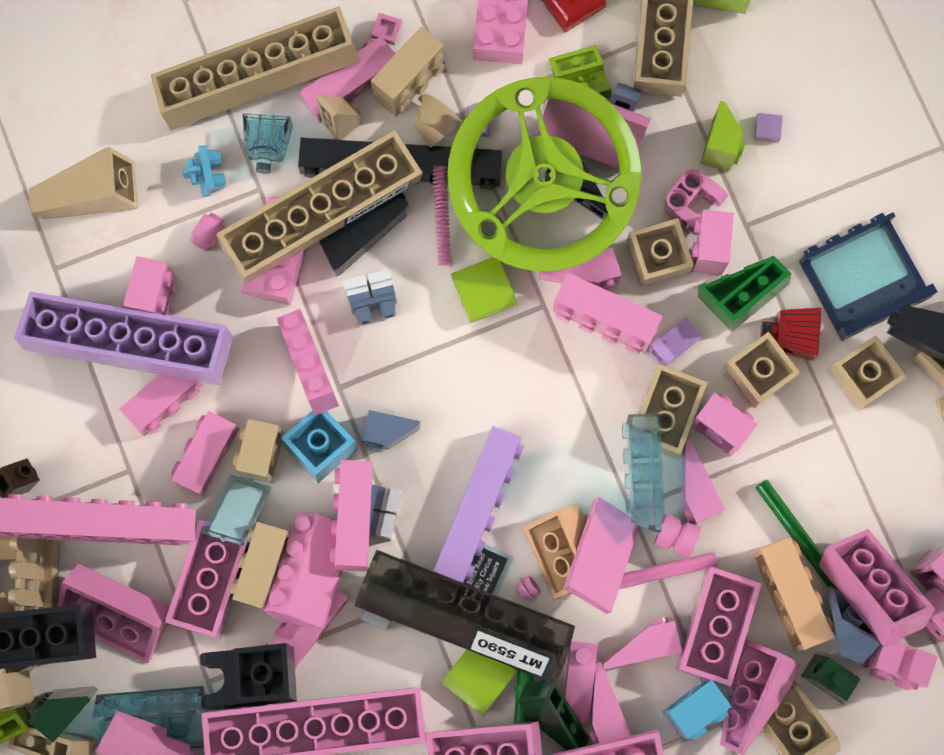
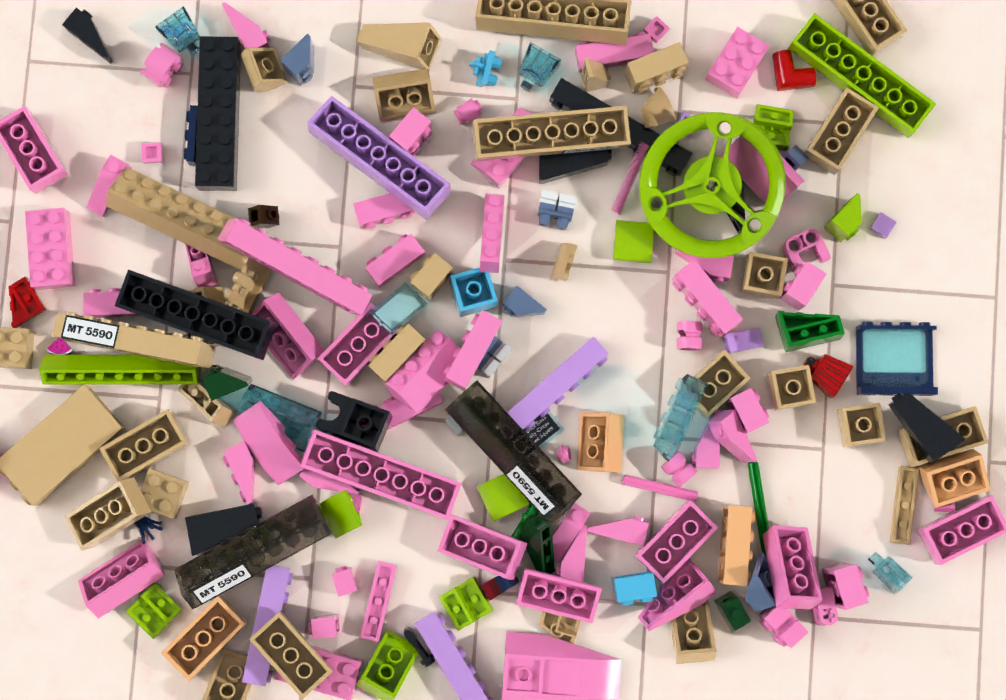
camera: 20 degrees right, 5 degrees up
(113, 248) = (401, 92): none -> tan slope
(412, 354) = (563, 262): none -> tan slope
(602, 556) = (622, 457): bright pink tile -> none
(607, 368) = (689, 335): none -> bright pink wheel
(719, 462) = (730, 433): none -> bright pink slope

